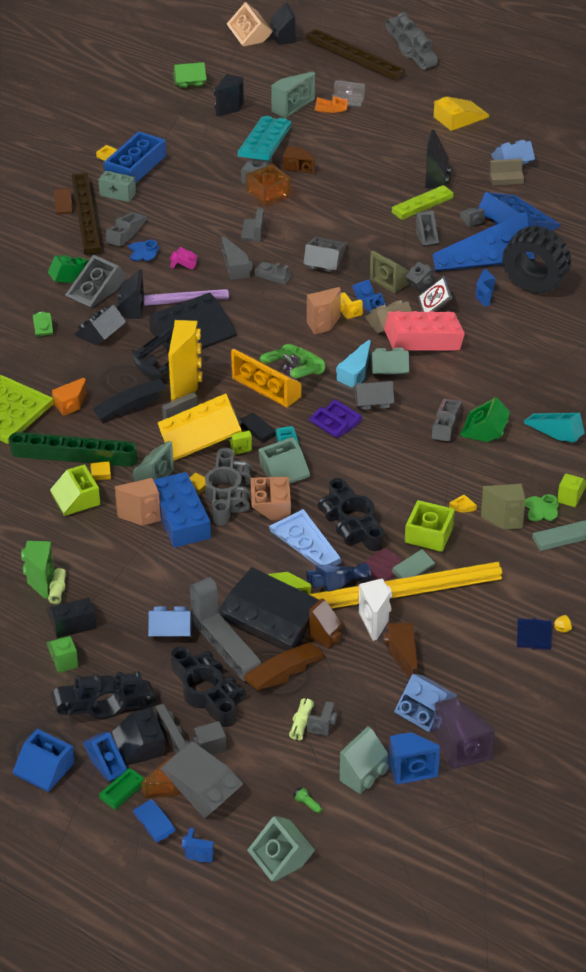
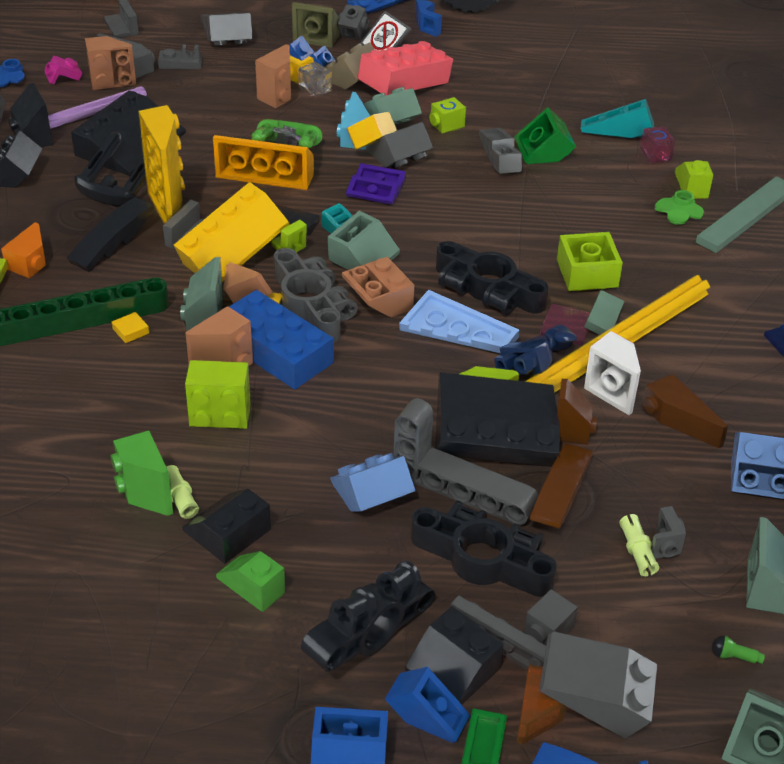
camera: 30 degrees left, 0 degrees up
(76, 491) = (120, 359): lime slope -> none
(115, 534) = (218, 394): none -> lime brick
(184, 463) = (242, 281): none -> nougat slope
(212, 264) = (110, 63): none -> nougat slope
(355, 319) = (315, 79): none -> clear brick
(355, 375) = (371, 129): none -> yellow slope
(429, 379) = (447, 115): none -> lime brick
(463, 504) = (595, 227): yellow tile -> none
(503, 505) = (651, 214): olive slope -> none
(569, 452) = (657, 144): none -> clear pink brick

